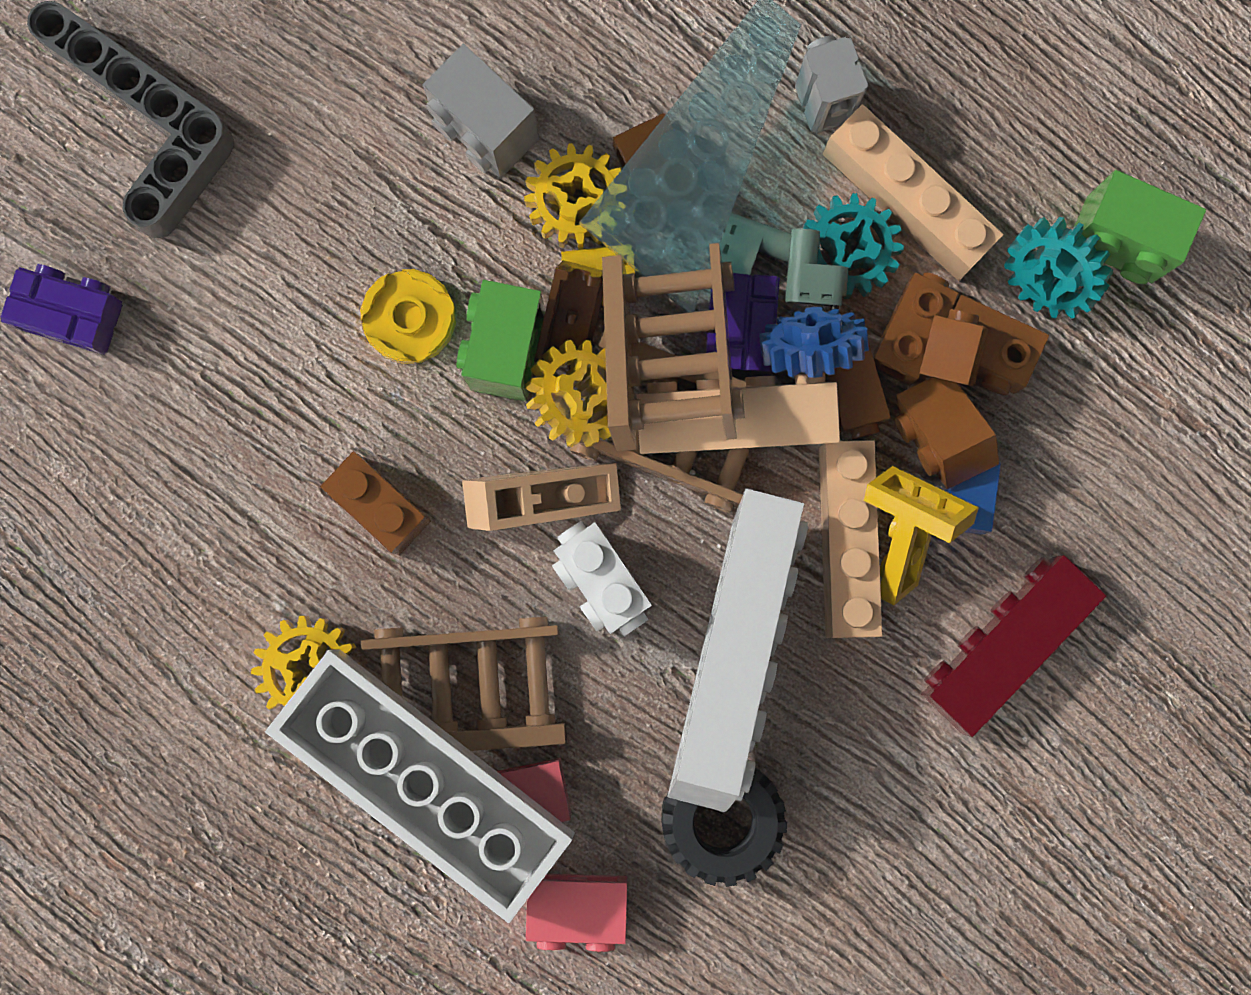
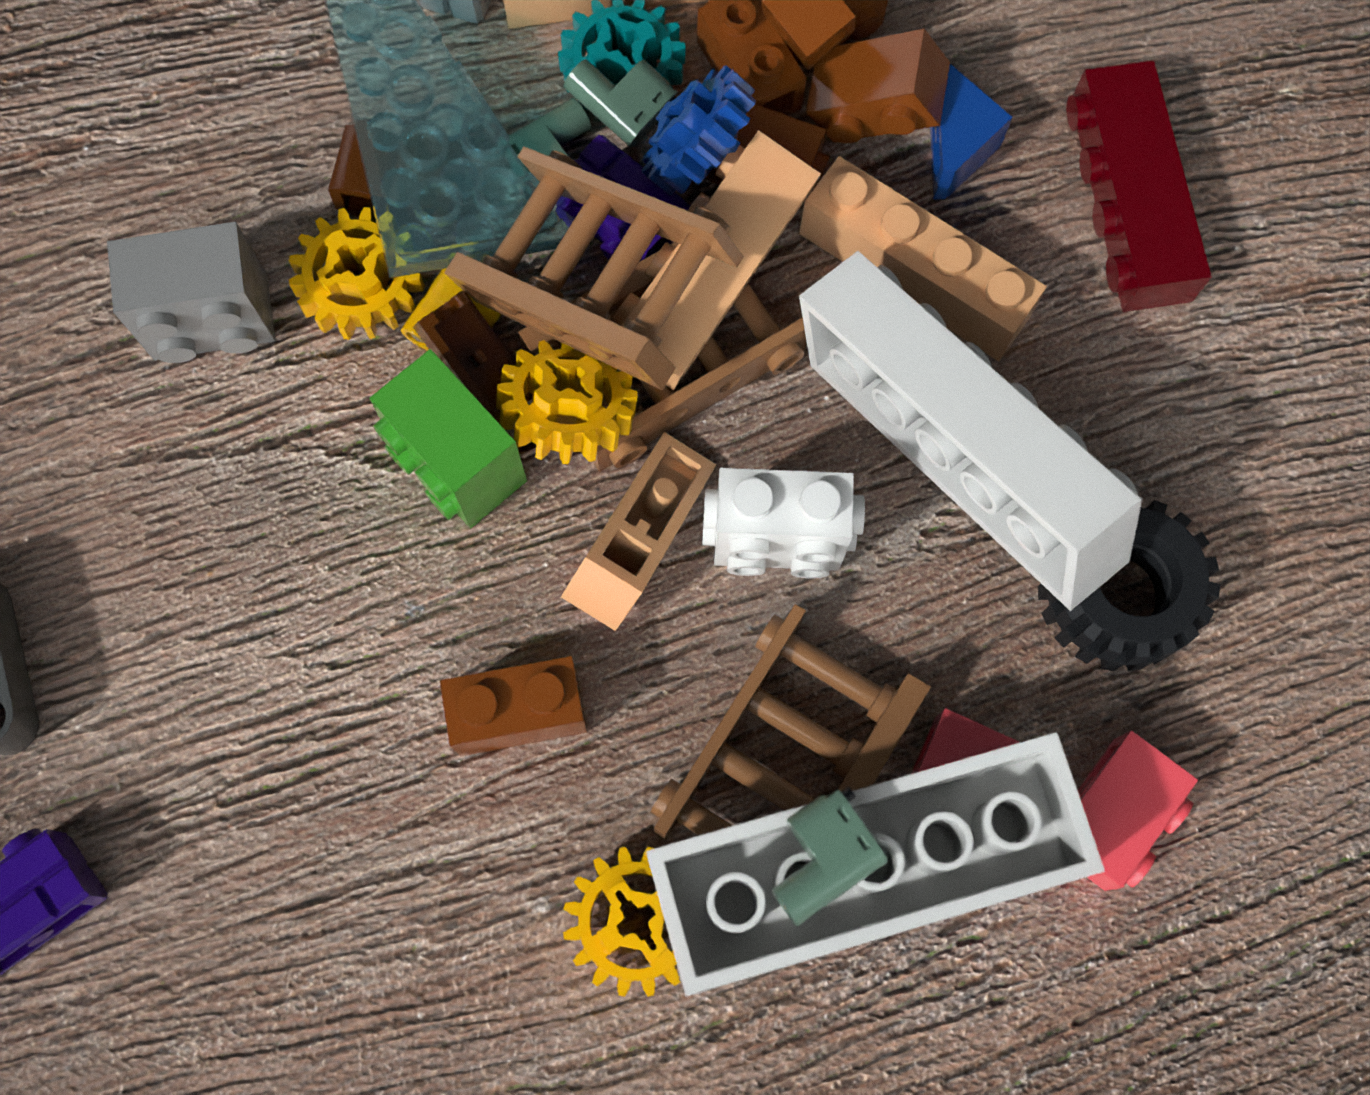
camera: 55 degrees left, 10 degrees down
(403, 762) = (840, 854): none -> sand green piece
(408, 316) = (339, 534): yellow tile -> none
(919, 514) = (941, 156): yellow bracket -> none

